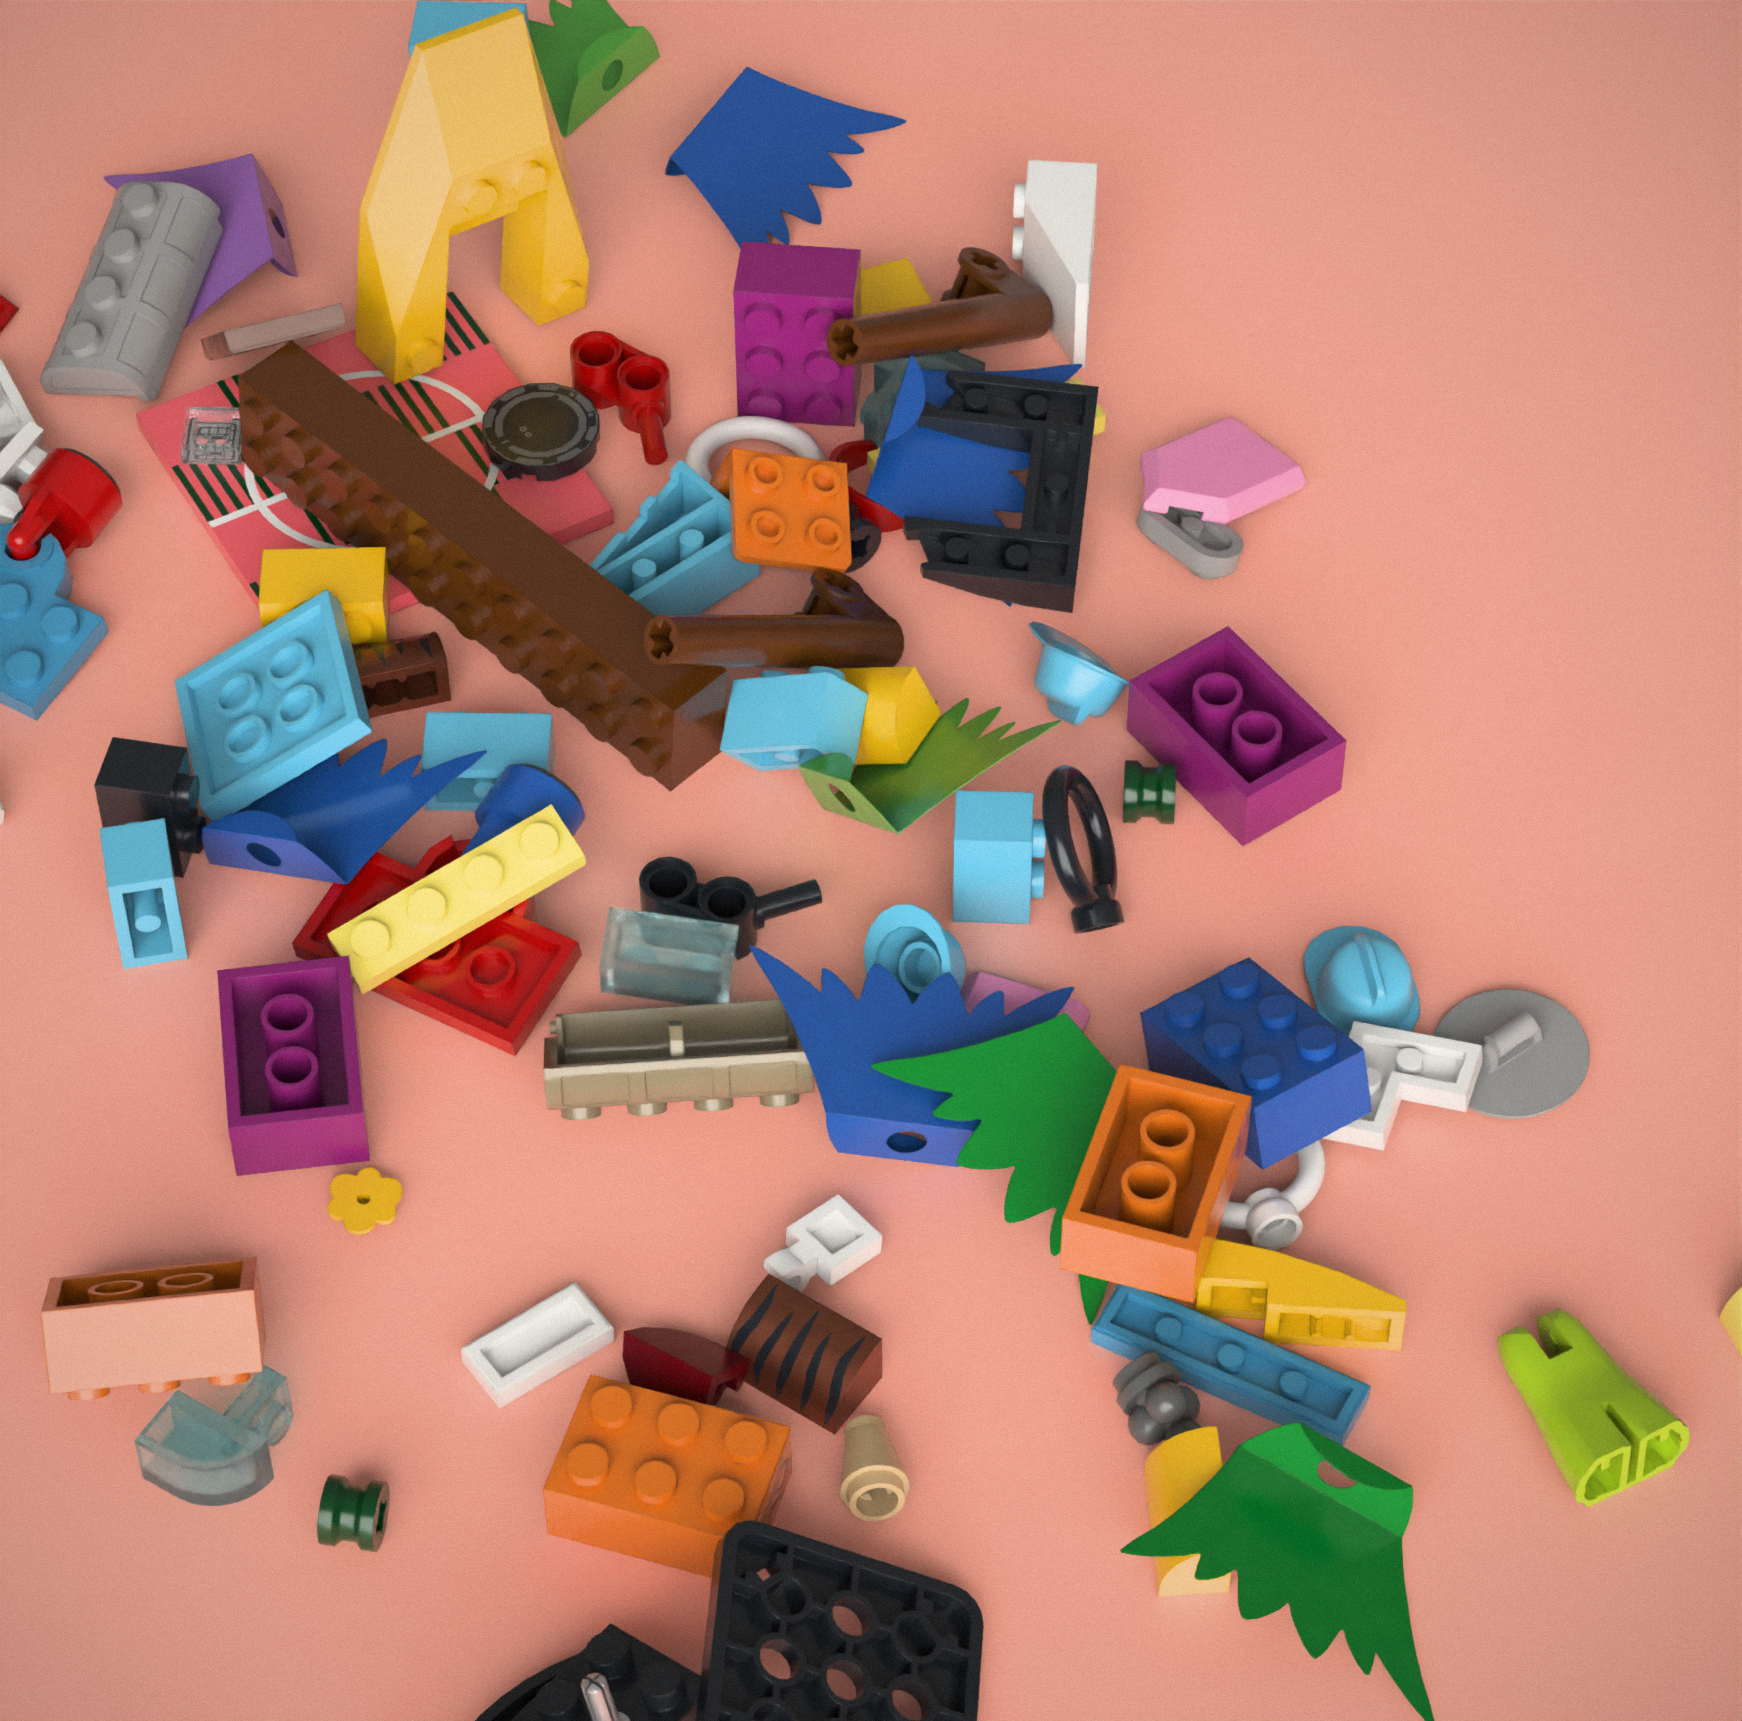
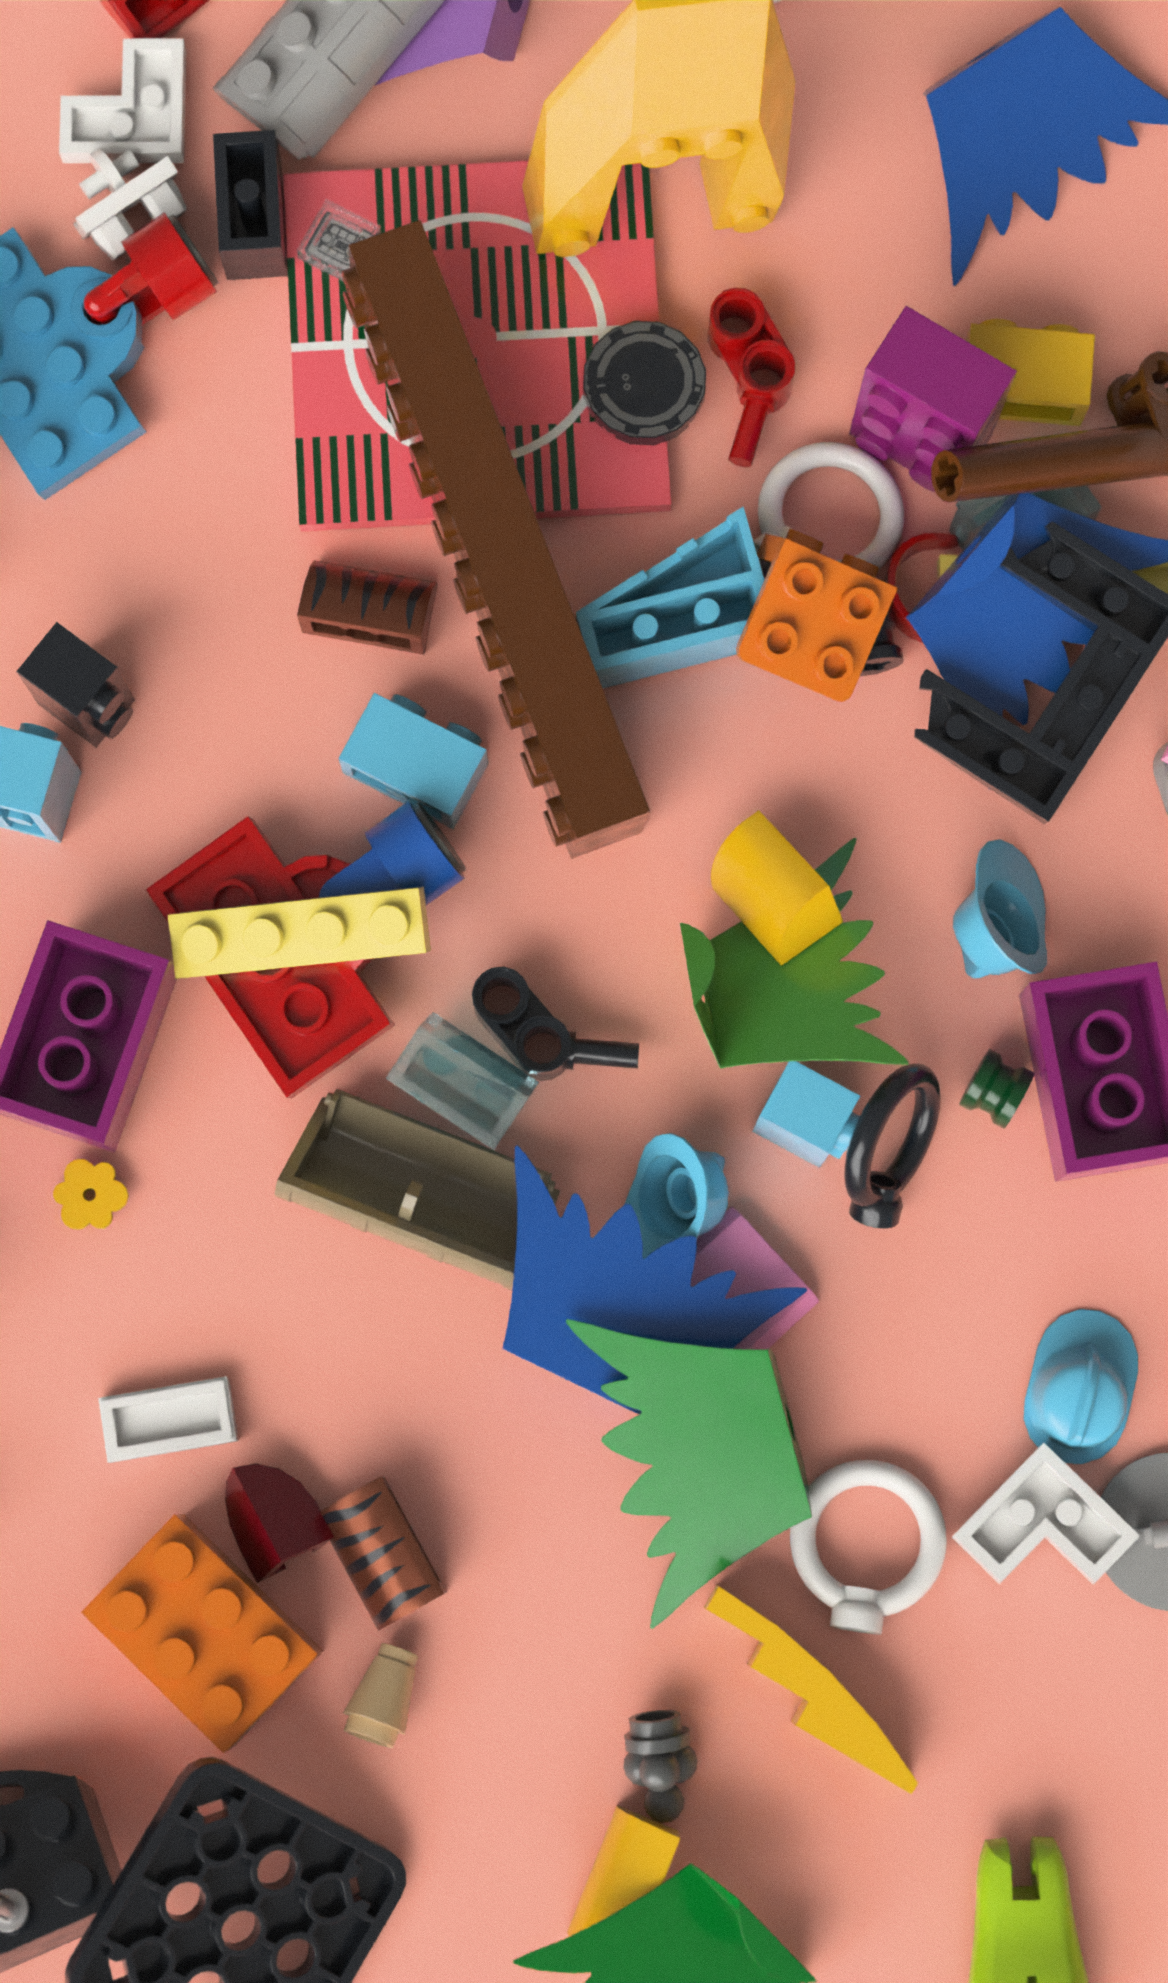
camera: 25 degrees right, 30 degrees up
(122, 431) = (250, 205): none -> black brick
(272, 706) = (239, 618): medium azure plate -> none
(273, 332) = (429, 166): tile -> none
(328, 816) = (224, 753): blue piece -> none
(352, 575) = (345, 504): yellow brick -> none
(793, 718) = (701, 870): medium azure brick -> none
(825, 1243) = (460, 1446): white plate -> none
(834, 630) = (806, 780): reddish brown axle -> none
(1155, 1183) = (750, 1581): orange brick -> none
(1231, 1363) = (747, 1737): dark azure tile -> none
(1266, 1043) = (923, 1461): blue brick -> none

